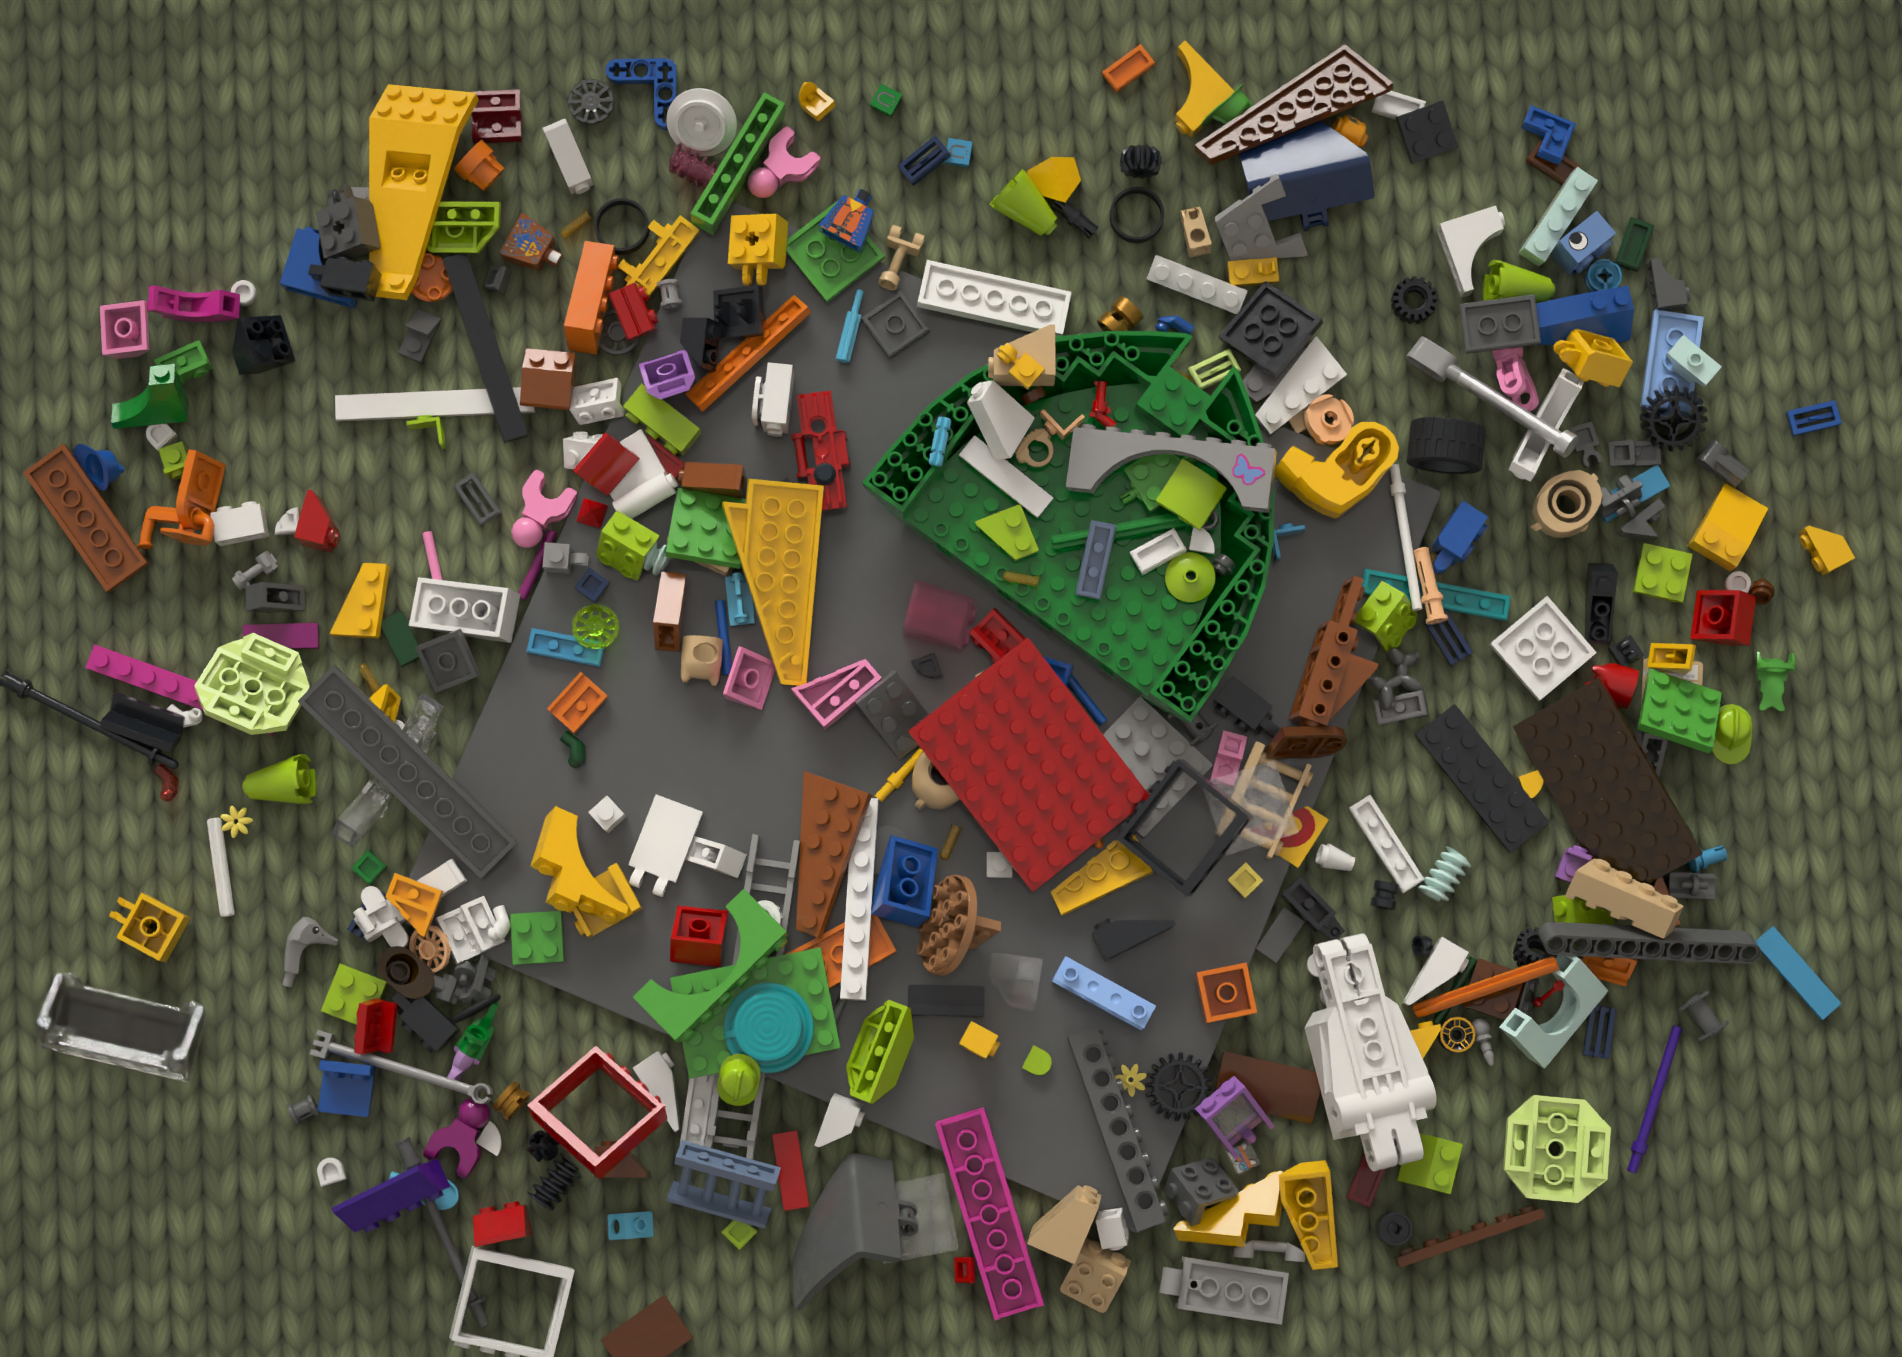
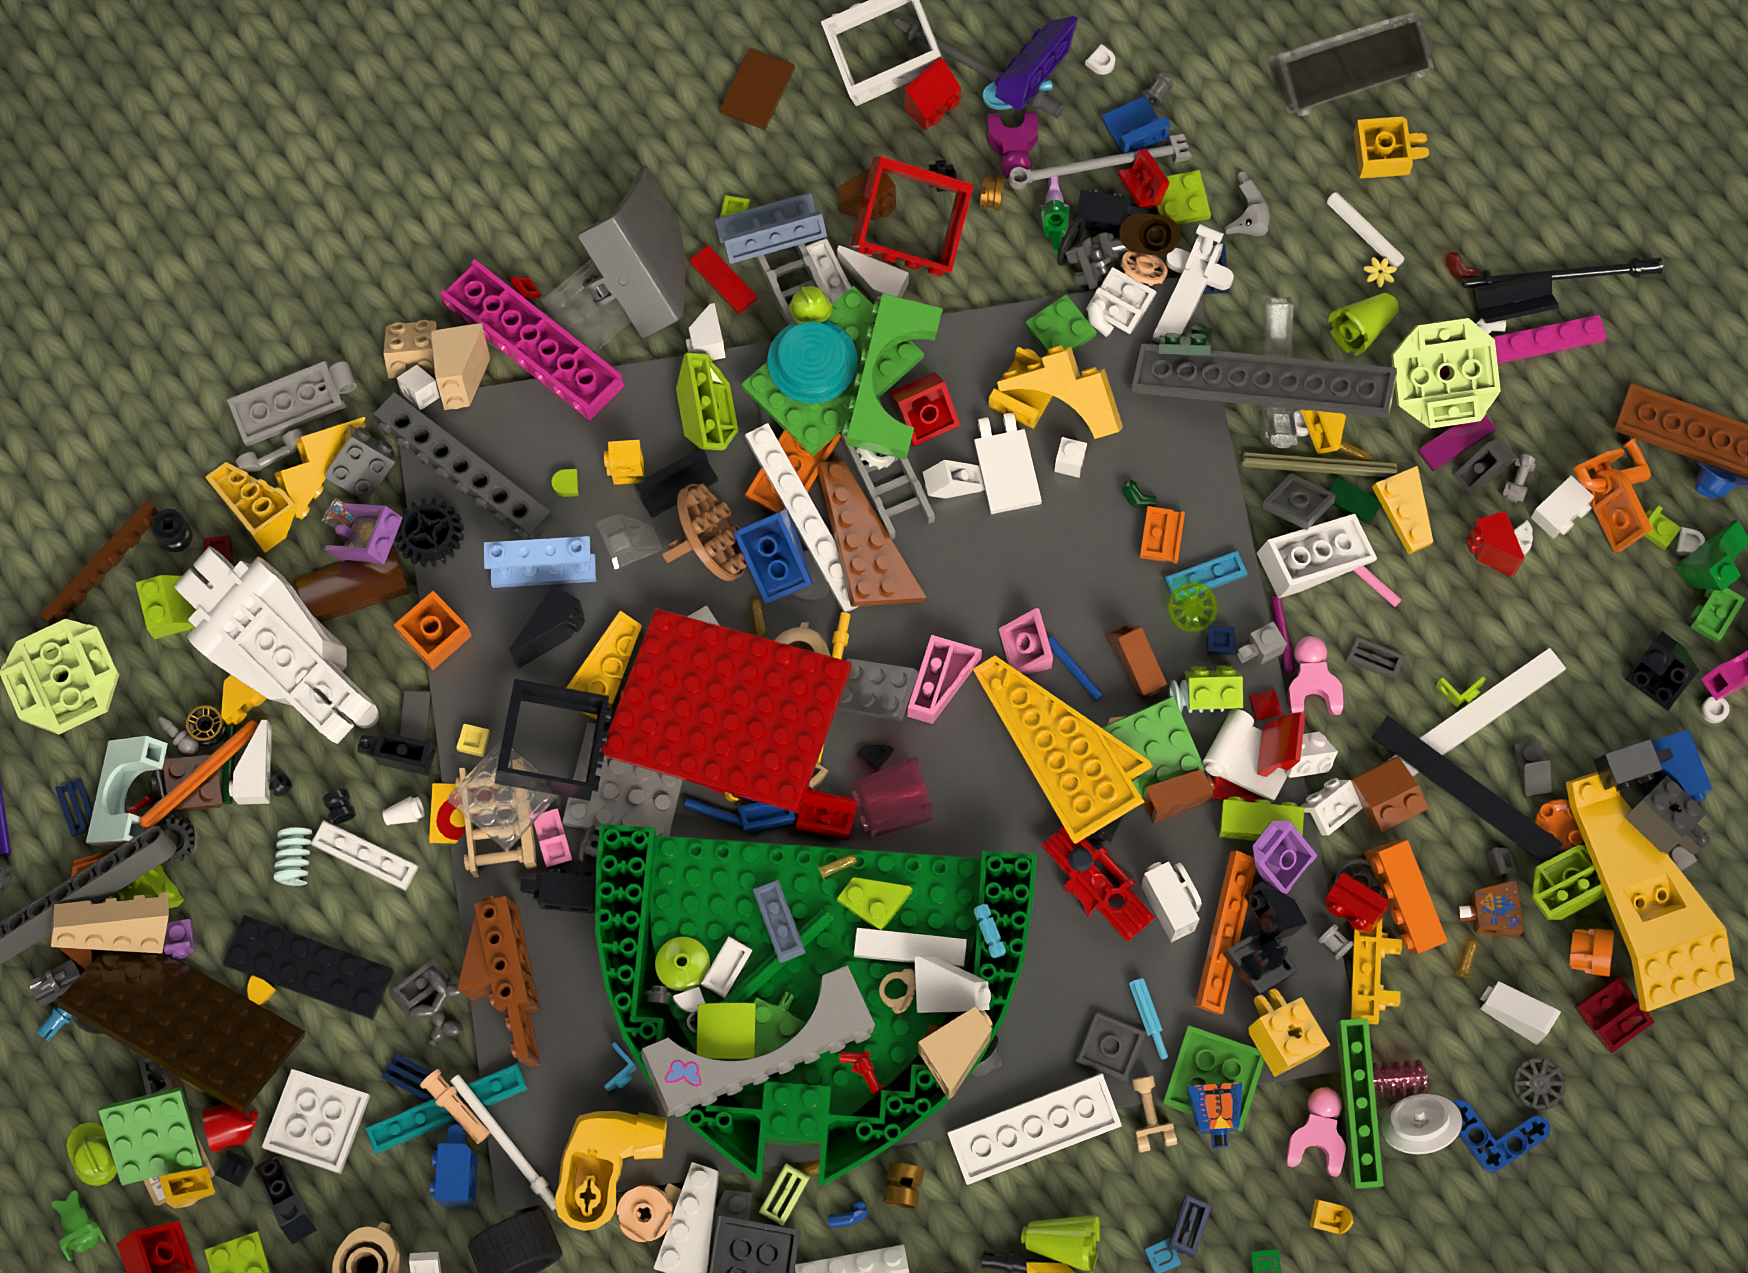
camera: 150 degrees right, 10 degrees down
(369, 867) = (1242, 303): green tile -> none
(402, 682) = (1319, 464): none -> olive axle
(414, 901) = (1182, 288): light orange wing -> none
(441, 844) = (1196, 342): none -> plate
(491, 1139) = (989, 158): white tile -> none
(556, 1183) = (912, 147): black piece -> none
(622, 201) = (1445, 964): black tyre -> none
(631, 1225) = (826, 160): medium azure bracket -> none
(701, 658) = (1080, 633): tan piece -> none
(739, 600) = (1078, 700): medium azure hinge -> none
(1025, 369) = (949, 1024): yellow plate -> none
(1053, 428) = (895, 1018): light nougat bracket -> none
(1136, 1078) = (475, 521): light yellow plant -> none
(1306, 742) = (486, 887): reddish brown tile -> none
(1387, 616) = (481, 1053): lime bracket -> none

